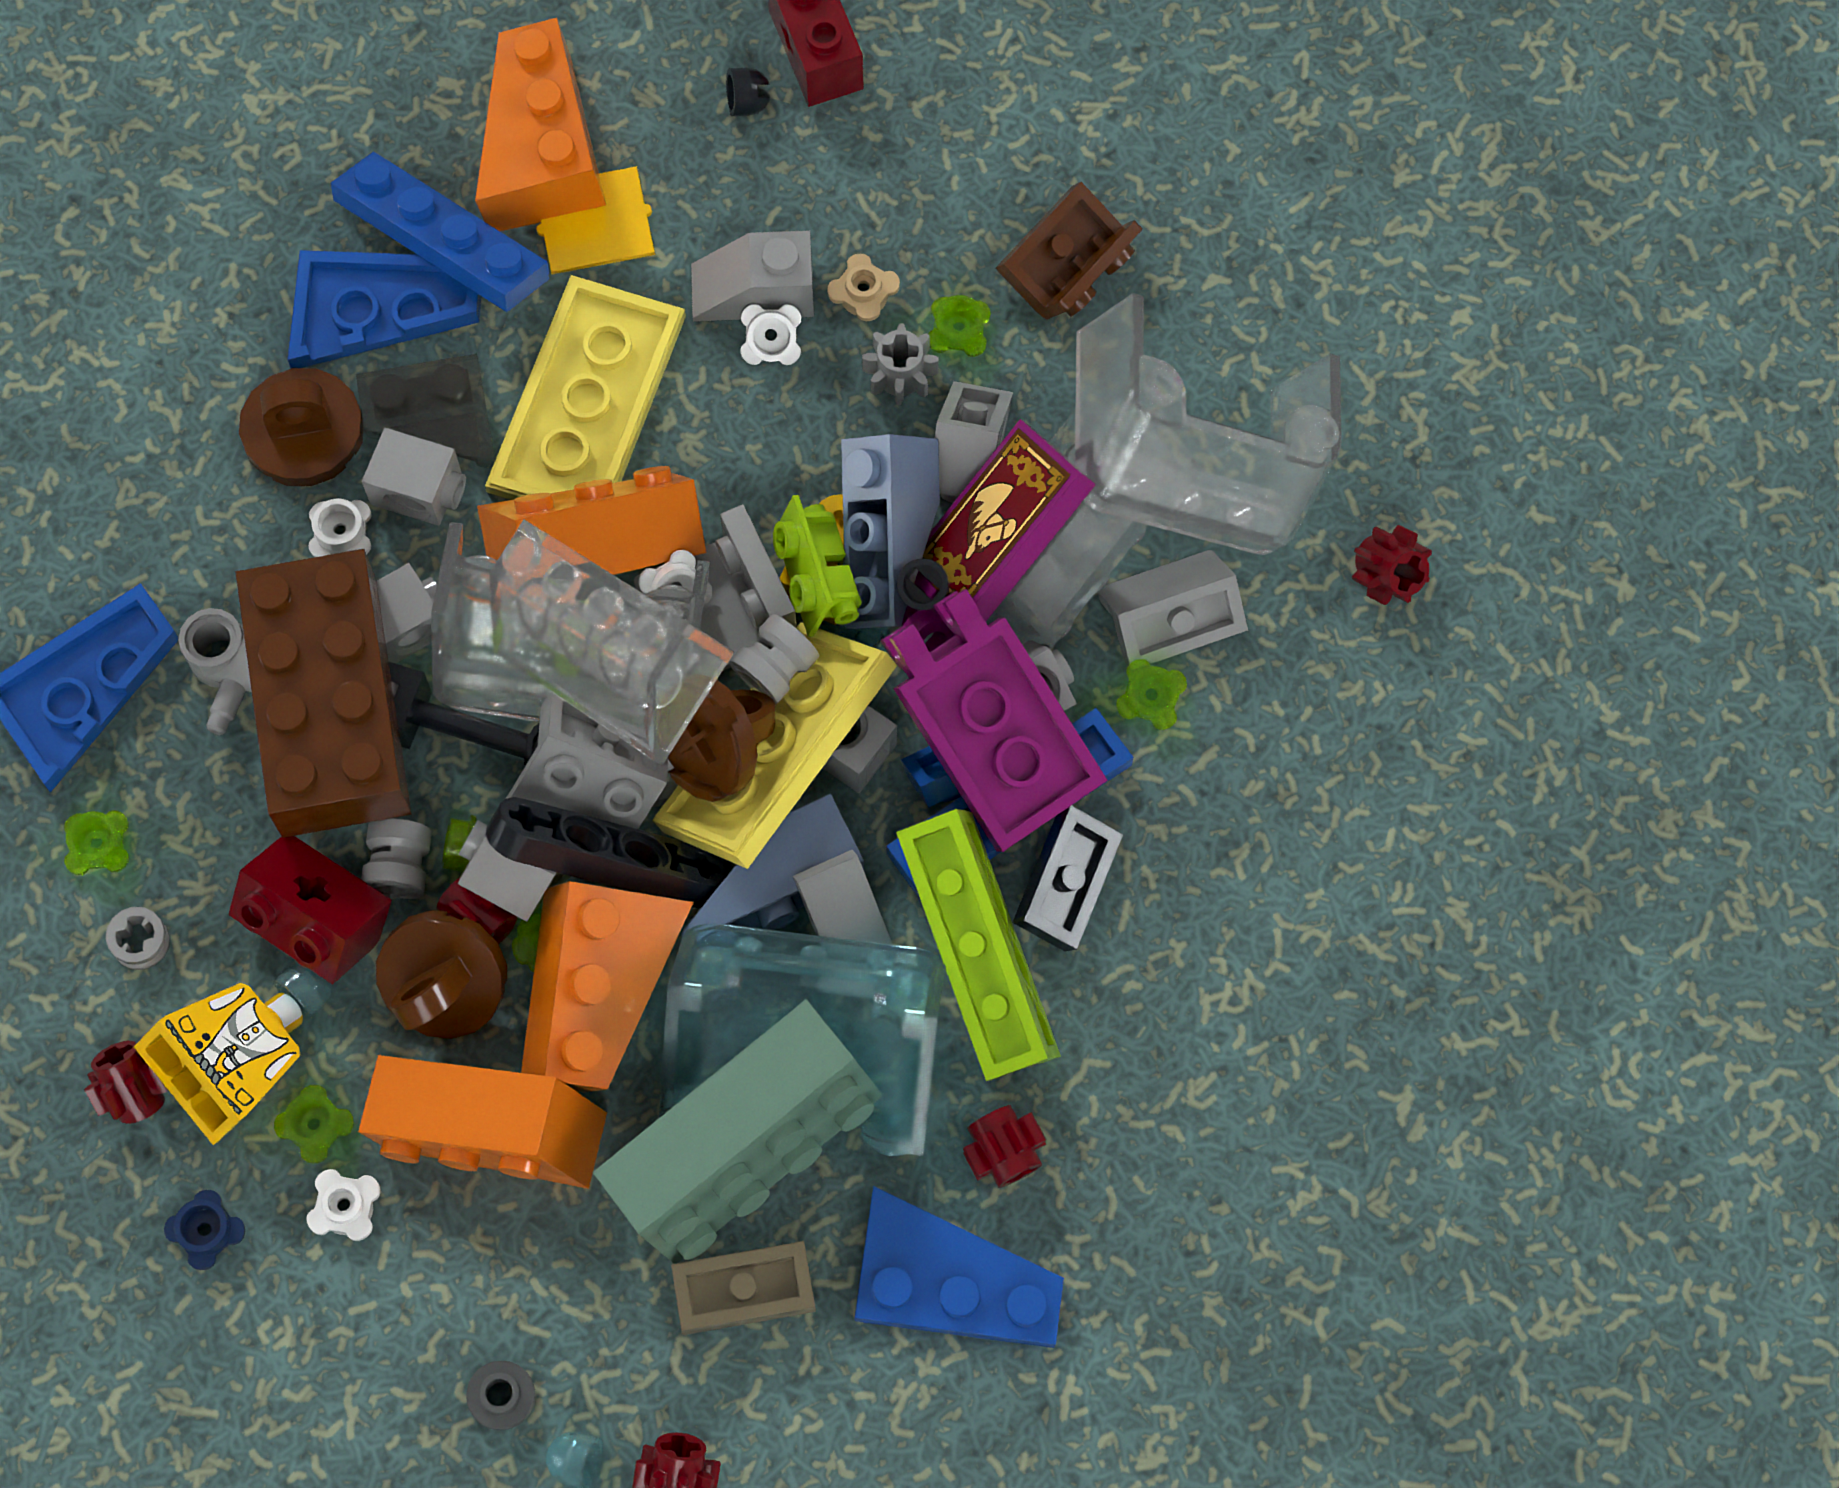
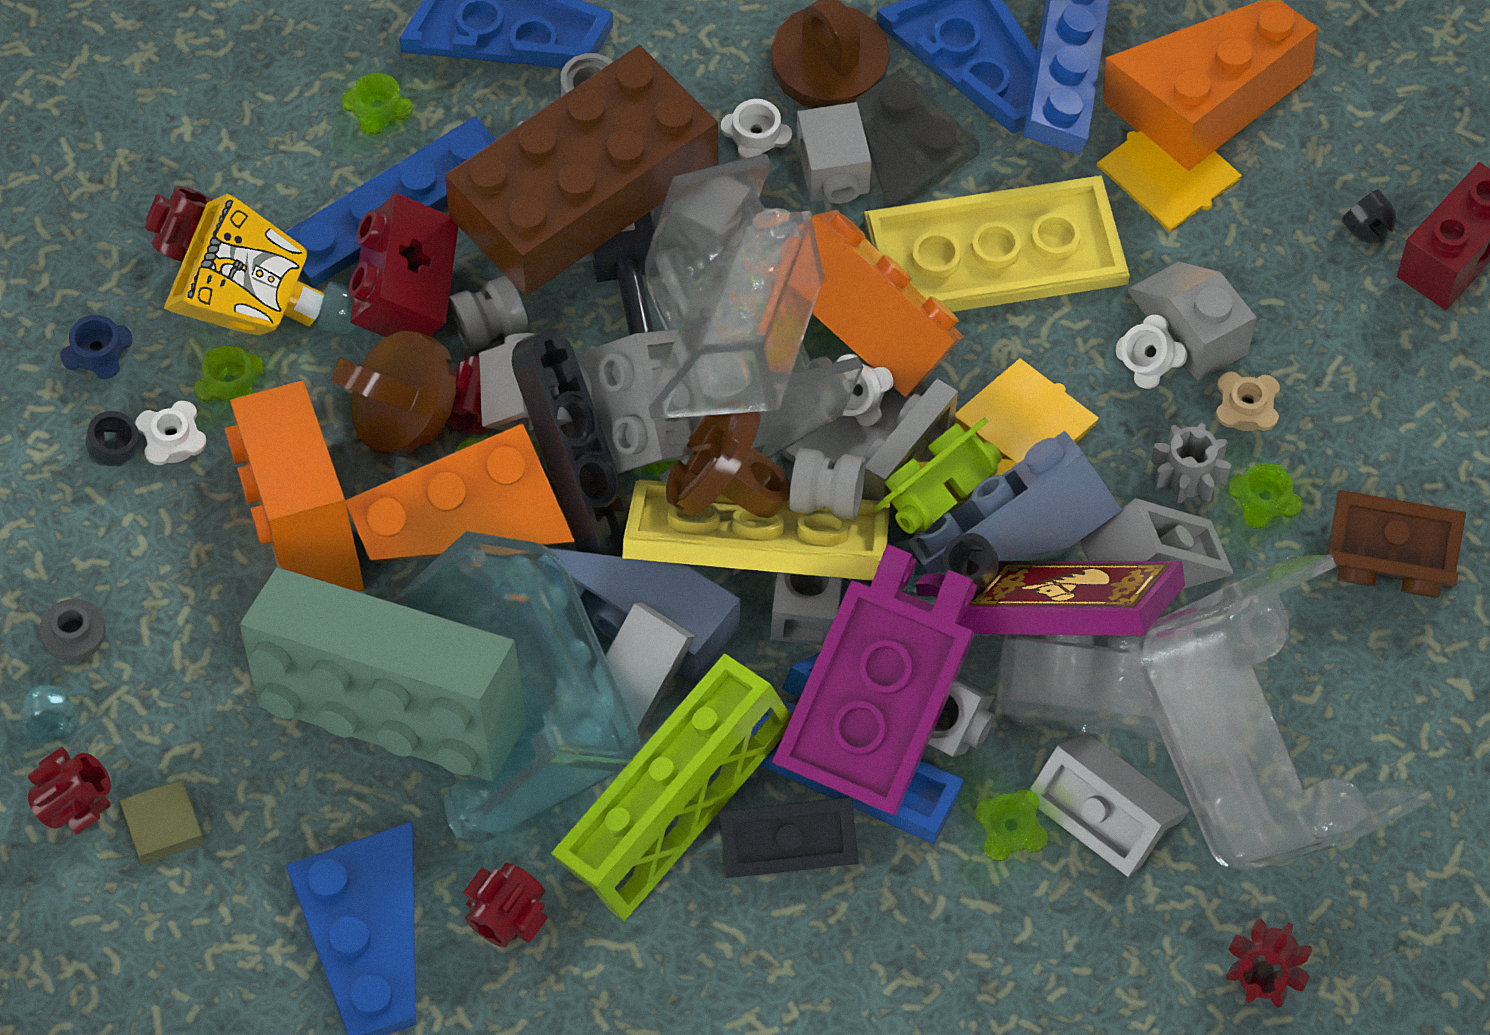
camera: 60 degrees right, 10 degrees down
(122, 927) = (308, 188): light grey bush -> none
(209, 862) = (332, 231): none -> blue plate
(327, 1252) = (125, 438): none -> black hinge
(743, 1288) = (264, 765): dark tan plate -> none
(745, 1408) = (161, 822): none -> olive tile
(771, 465) = (1024, 410): none -> yellow piece

